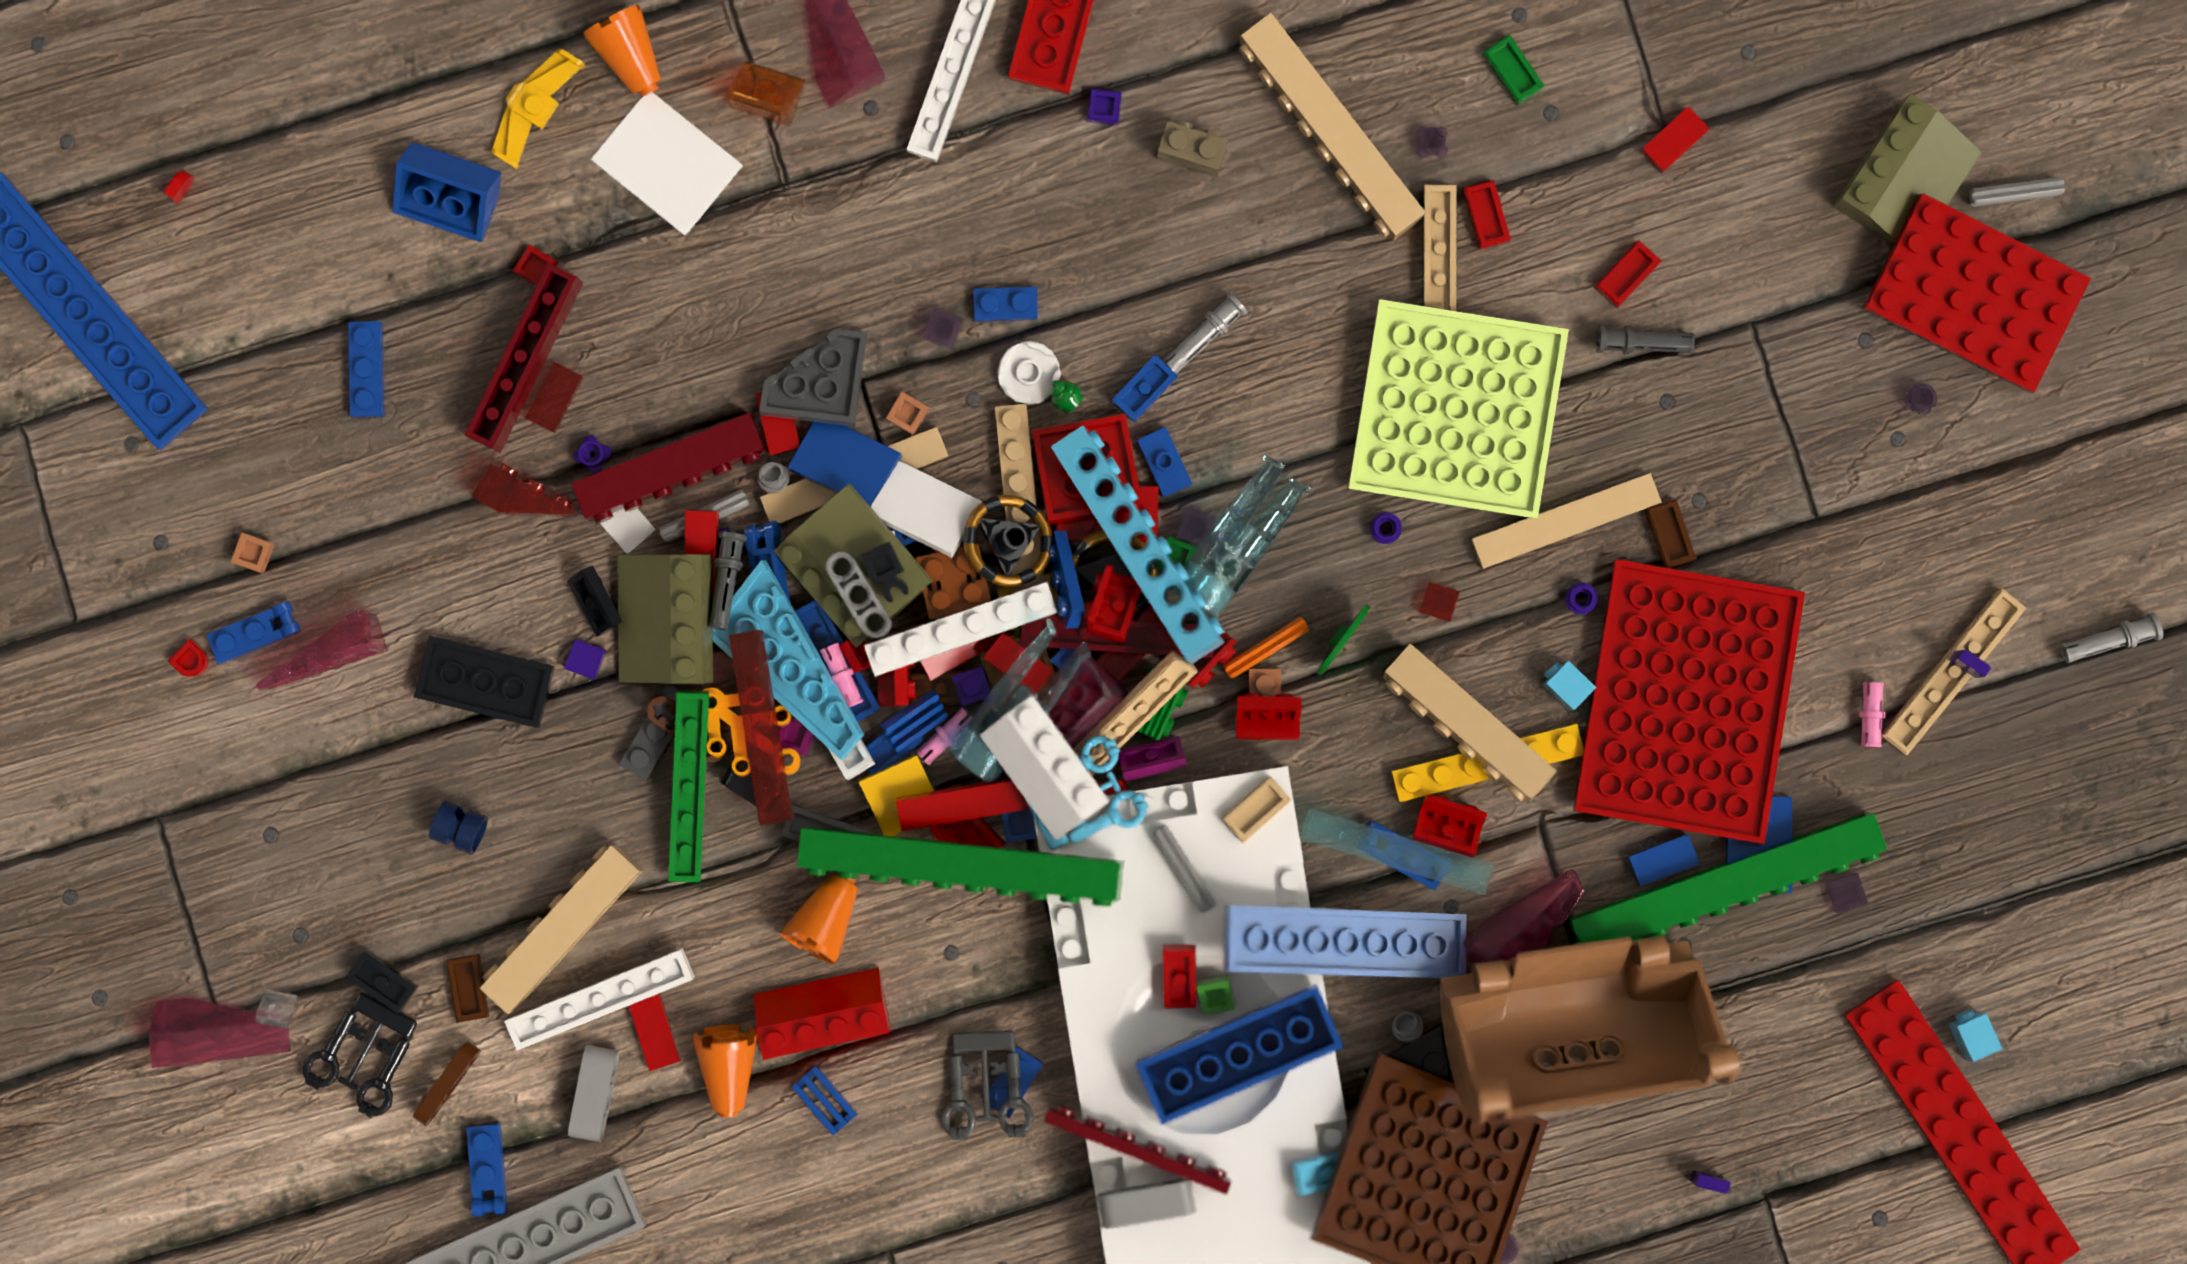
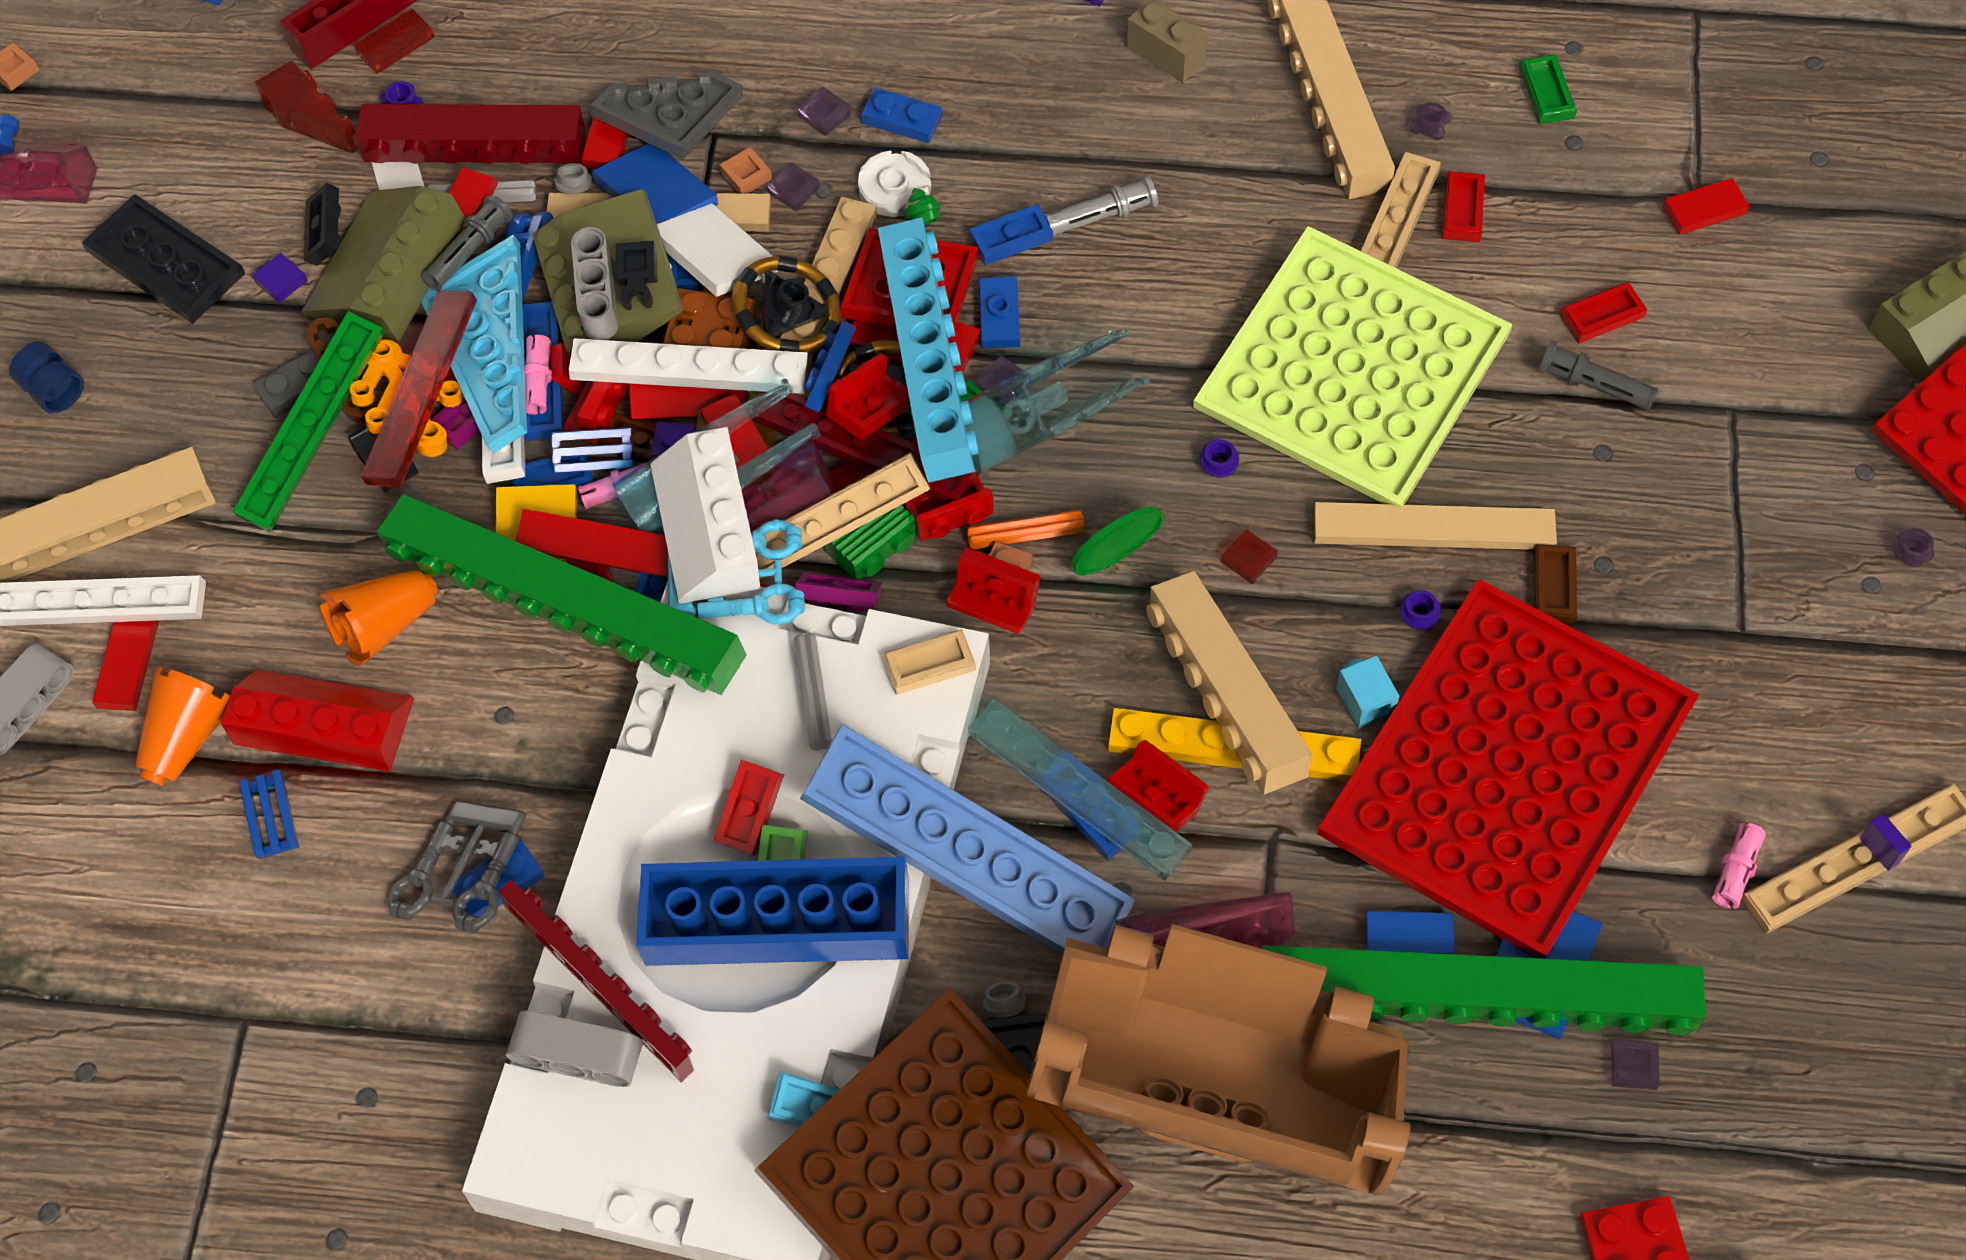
camera: 20 degrees right, 25 degrees down
(950, 408) = (793, 186): none -> clear purple tile

